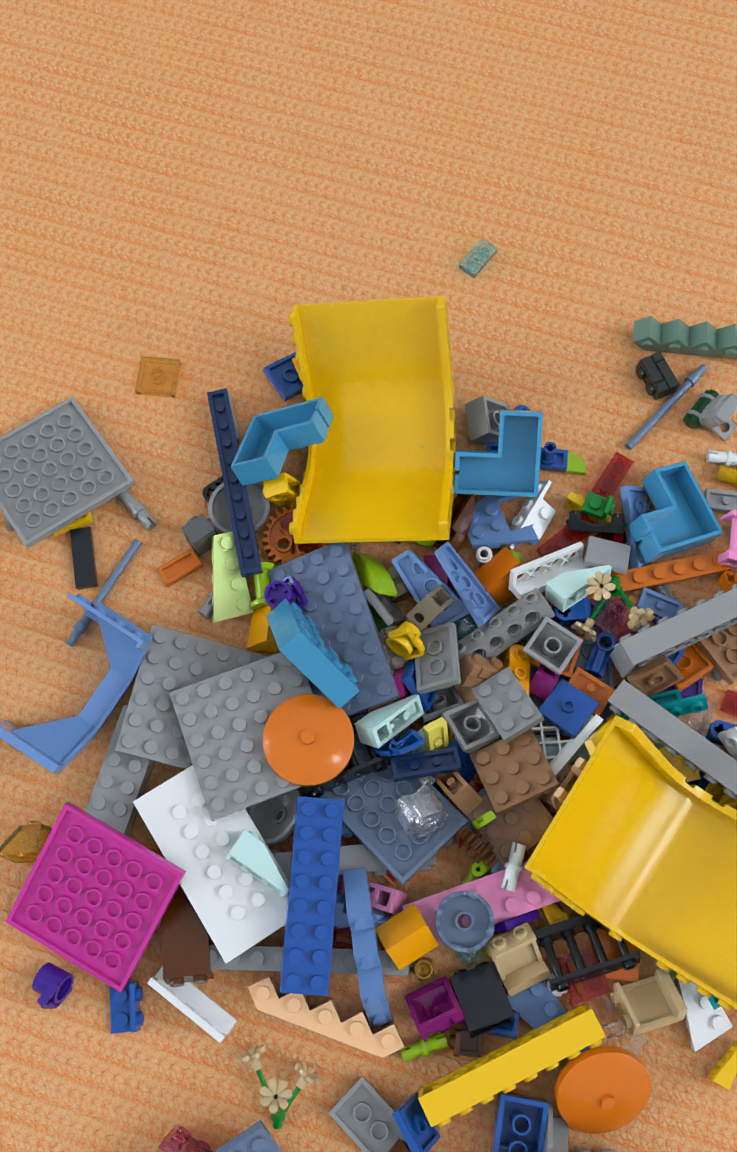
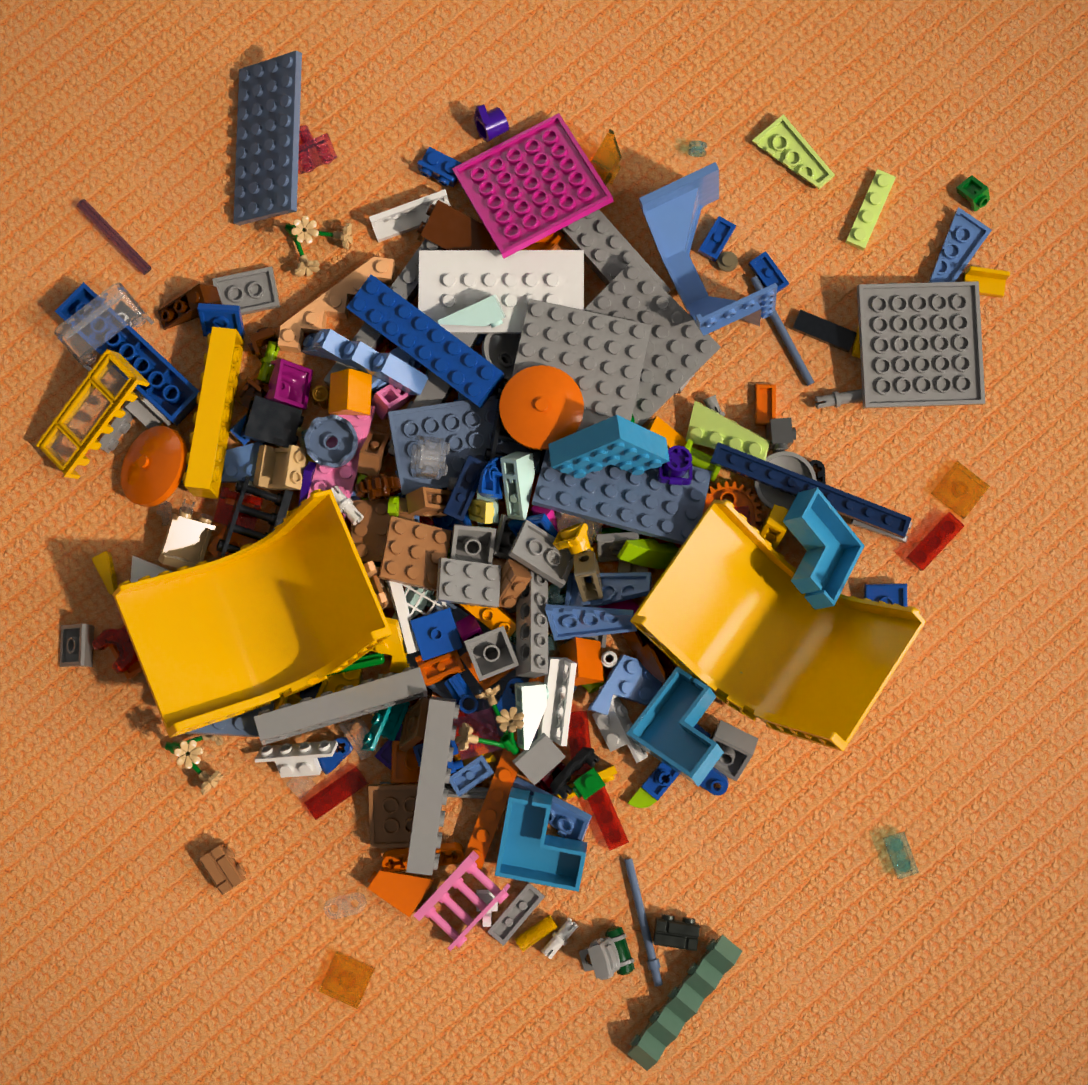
camera: 125 degrees right, 10 degrees up
(50, 697) = (717, 238): none -> blue plate
(57, 633) = (768, 271): none -> blue plate
(66, 676) = (727, 261): none -> dark tan plate
(213, 369) = (935, 541): none -> clear red plate
(405, 1071) = (261, 339): none -> reddish brown bracket
(446, 877) = (373, 453): none -> medium nougat brick

